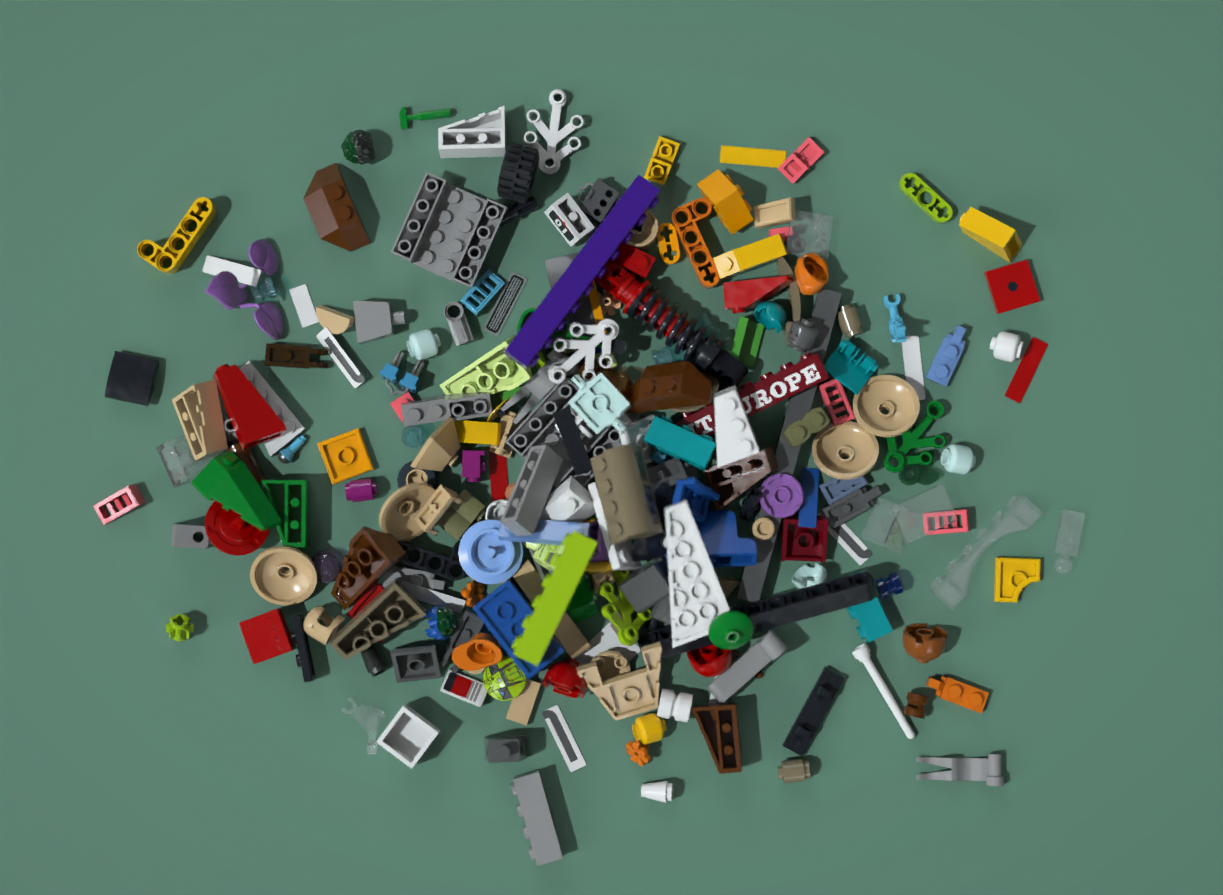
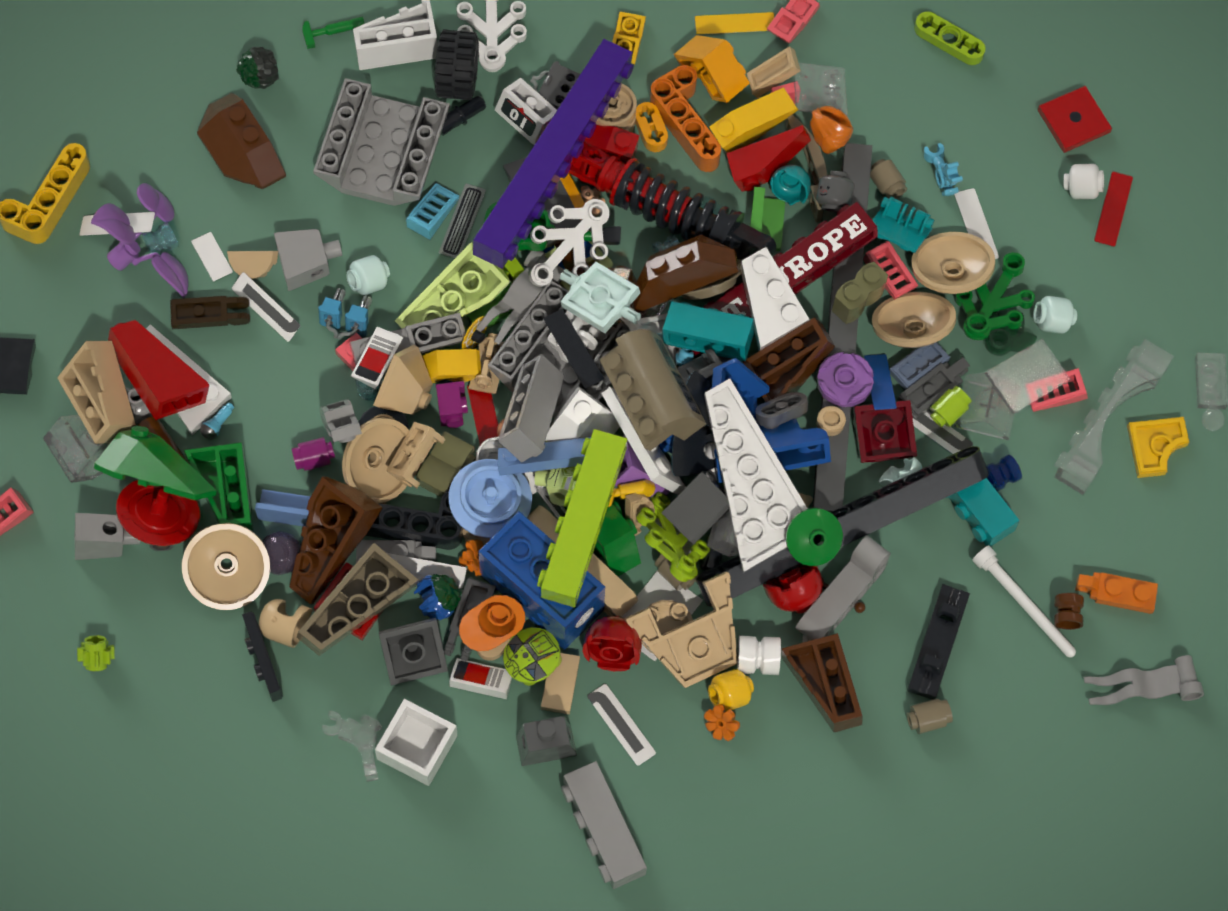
camera: 10 degrees left, 20 degrees down
(267, 635) = (212, 648): red bracket -> none
(335, 529) = (283, 508): none -> medium blue panel
(345, 456) = (287, 420): light orange tile -> none
(373, 661) = (356, 659): pearl dark grey cone -> none
(382, 480) = (340, 421): none -> light grey slope
(419, 423) = (376, 357): none -> slope
(458, 326) = (408, 246): light grey piece -> none
(658, 791) = (757, 768): white cone -> none
(725, 516) = (781, 409): none -> flat silver plate
(750, 503) = (810, 388): black axle -> none
(859, 526) = (950, 407): none -> lime brick
(924, 643) = (1062, 533): dark orange cylinder -> none
(947, 357) = (1015, 206): medium blue hinge -> none
(991, 234) = (1037, 61): yellow slope -> none

